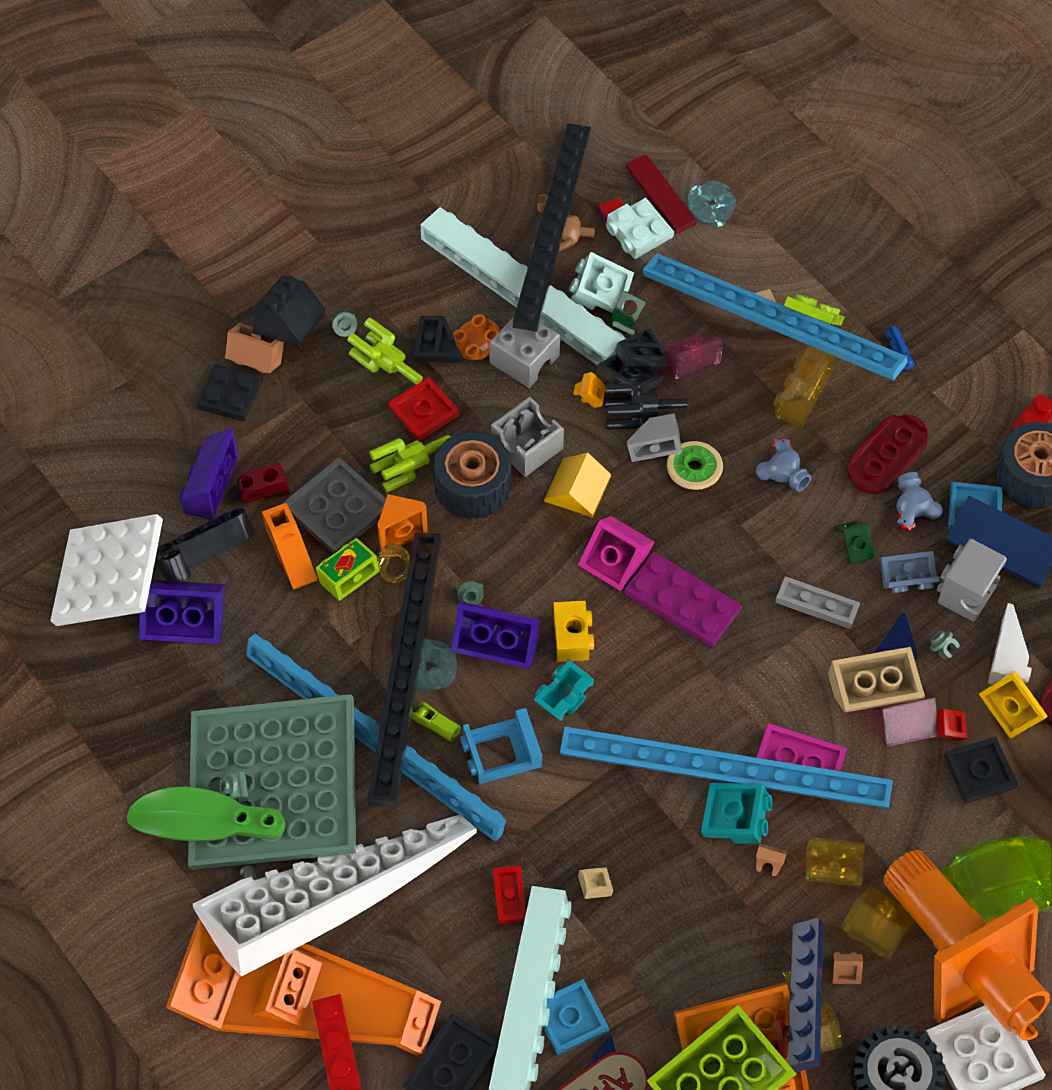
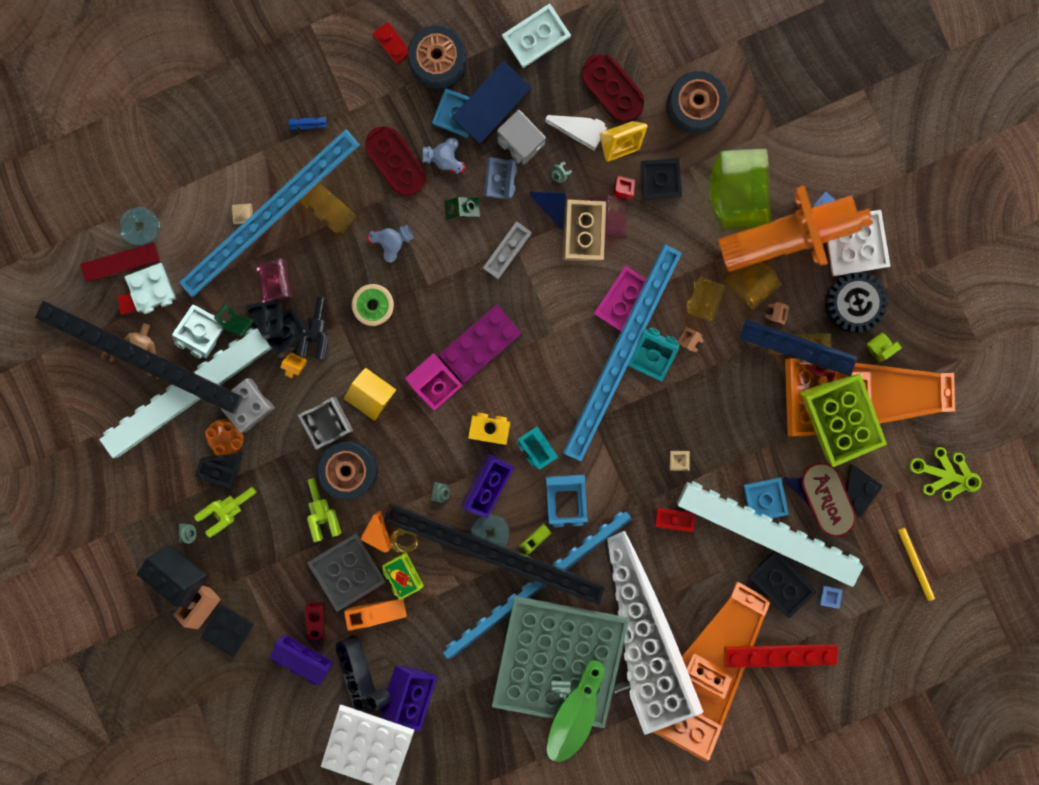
camera: 75 degrees left, 30 degrees up
(423, 409) = (278, 491): red plate -> none
(655, 438) = (346, 327): light grey slope -> none
(821, 312) = (268, 179): lime plate -> none

